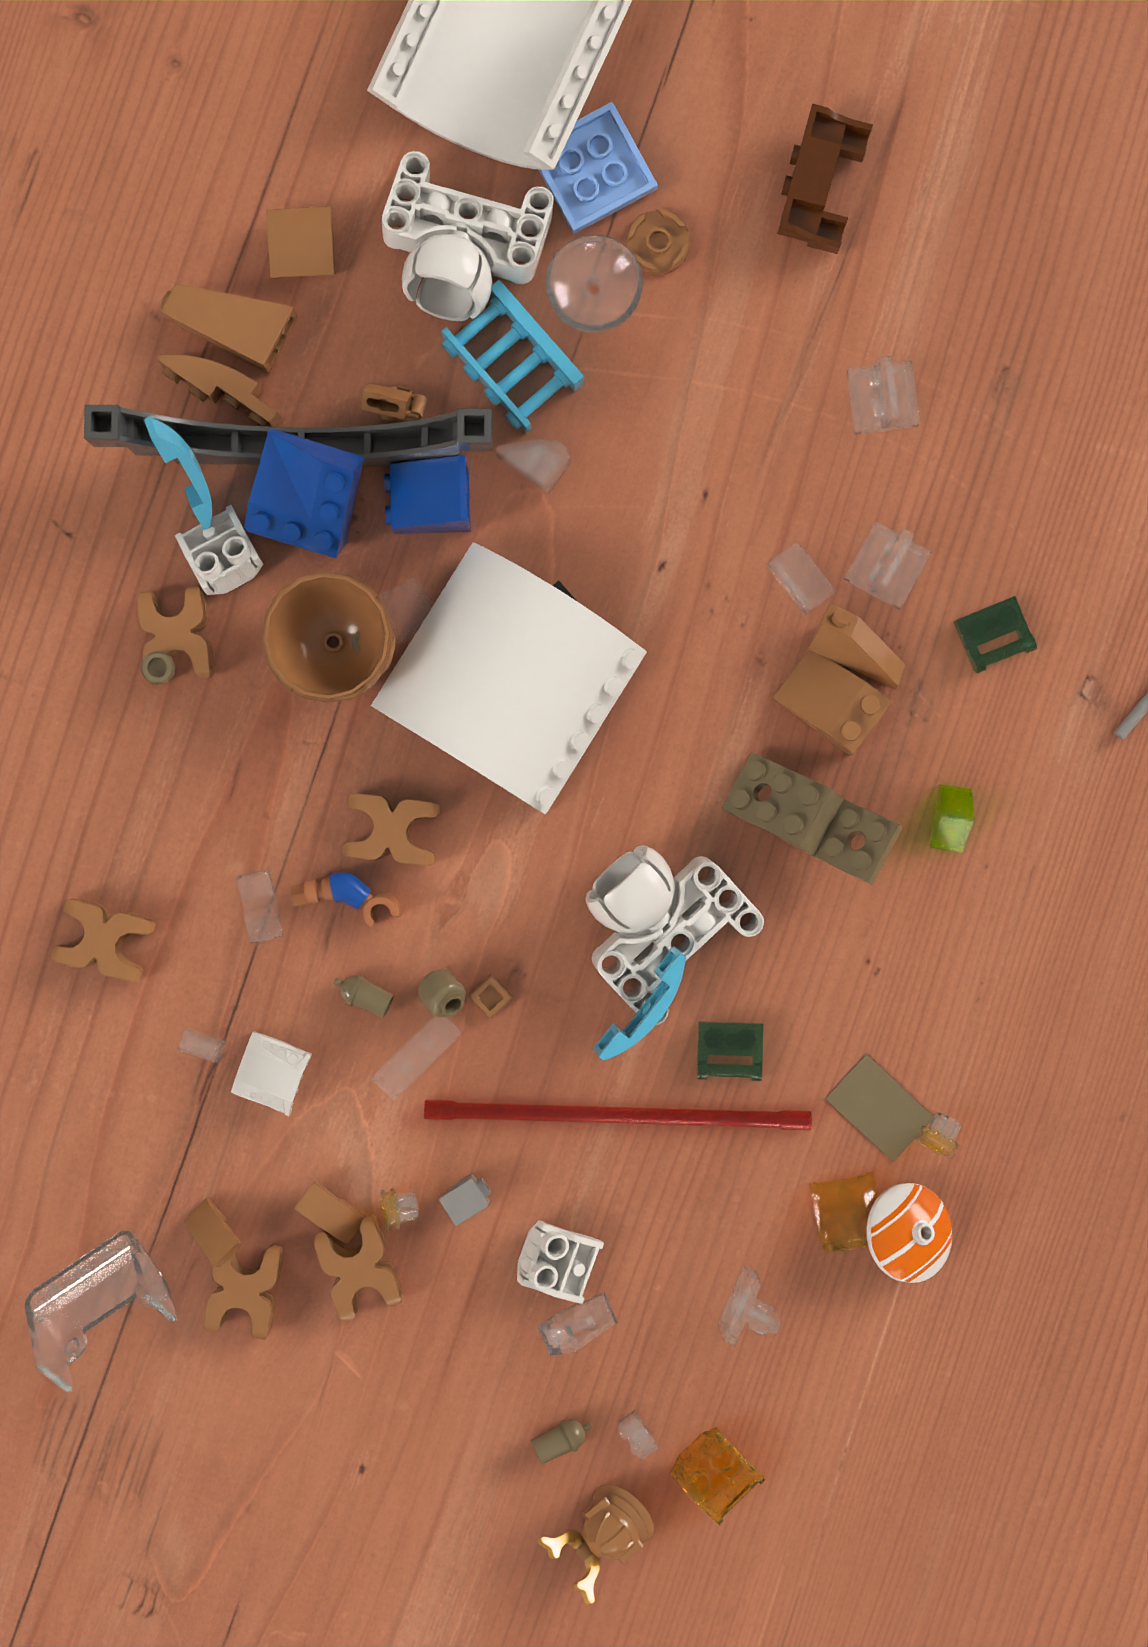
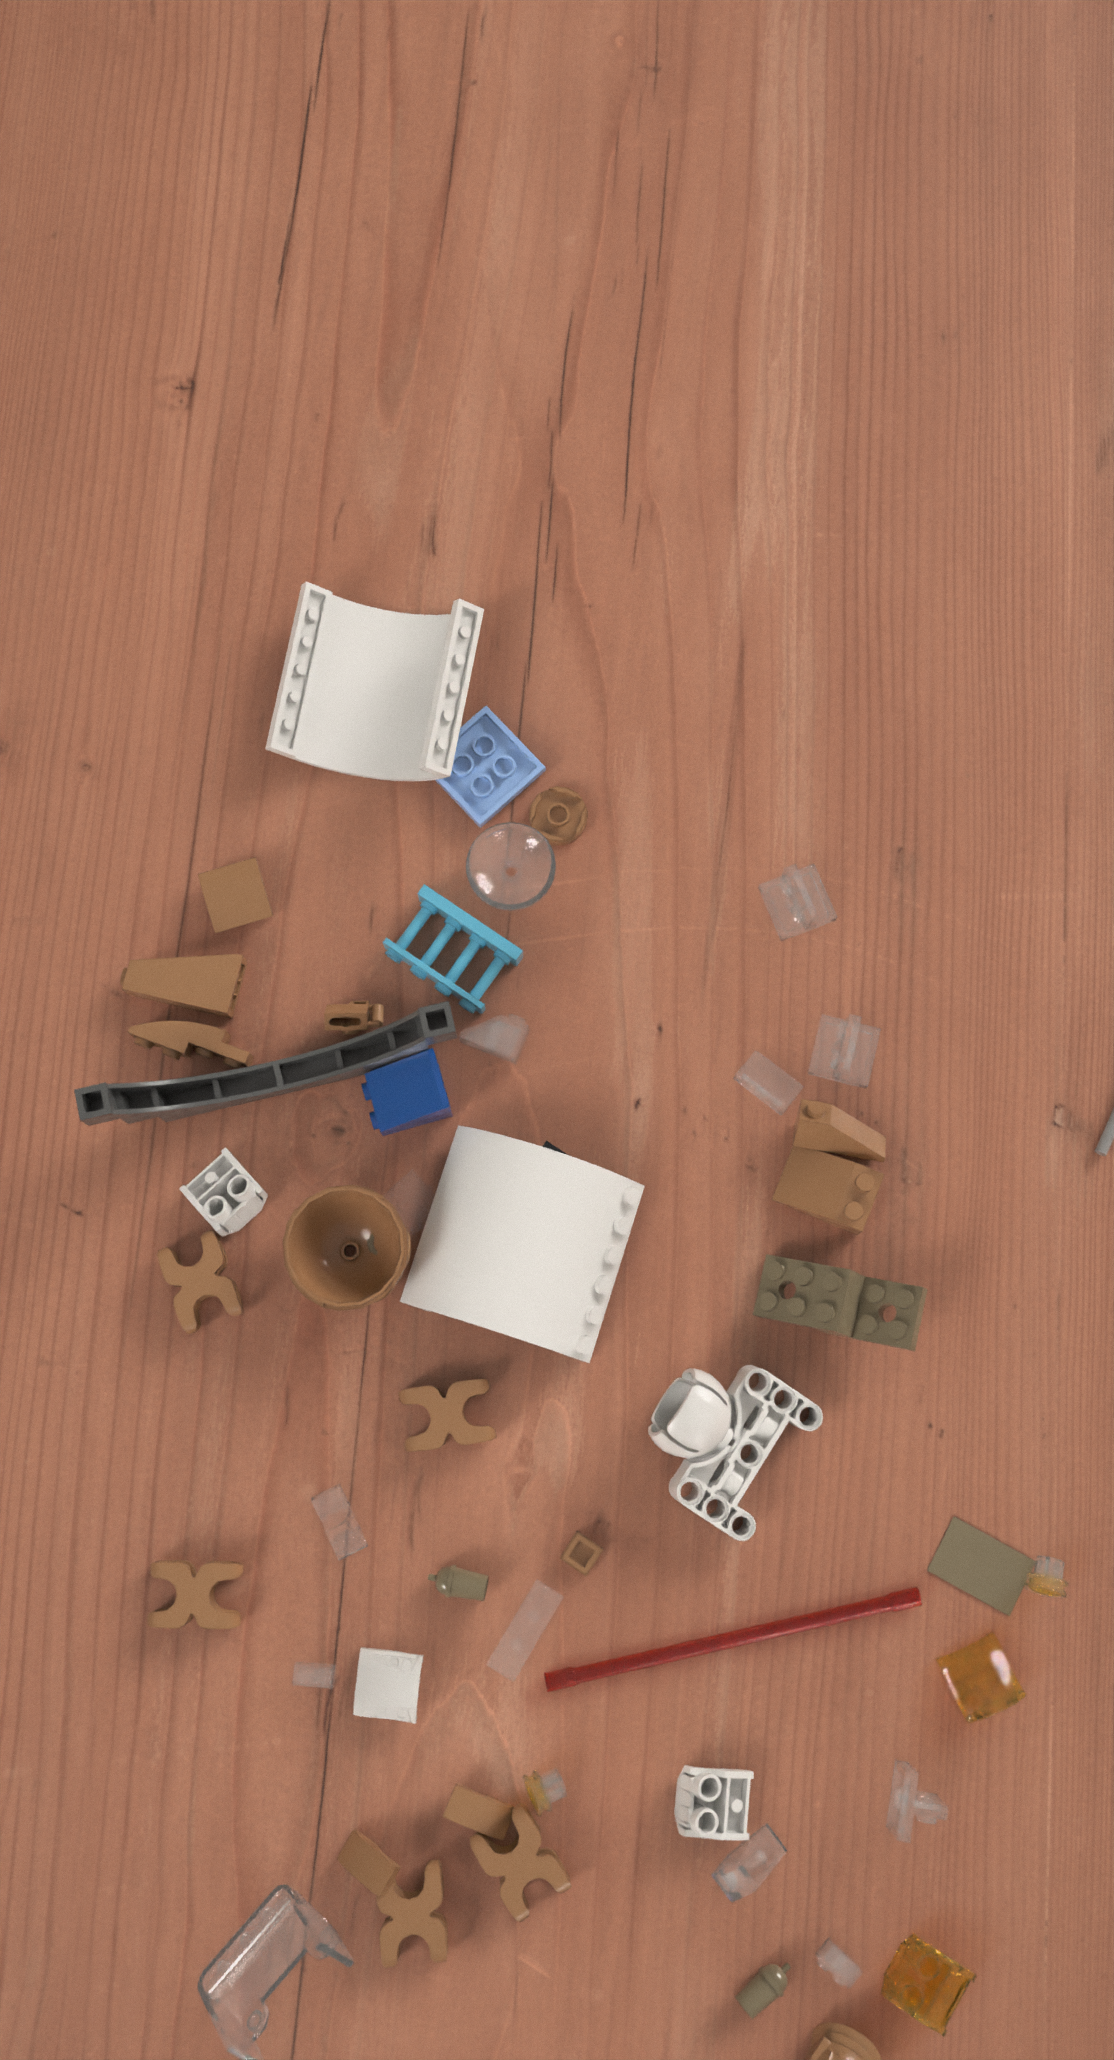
camera: 15 degrees left, 10 degrees down
(158, 667) = (191, 1316): dark tan tile -> none
(172, 446) = (163, 1107): medium azure slope -> none
(304, 493) = (291, 1120): blue slope -> none
(347, 889) = (417, 1483): nougat piece -> none
(442, 993) = (534, 1562): dark tan head -> none
(459, 252) = (378, 870): white beam -> none
(465, 1198) = (608, 1762): light grey brick -> none
(619, 1040) = (715, 1564): medium azure slope -> none
(729, 1040) = (822, 1536): clear green plate -> none
(815, 161) = (680, 715): reddish brown bracket -> none
(896, 1232) = (1032, 1683): orange dish -> none
(952, 818) = (970, 1269): clear neon green slope -> none
(991, 624) = (954, 1080): clear green plate -> none

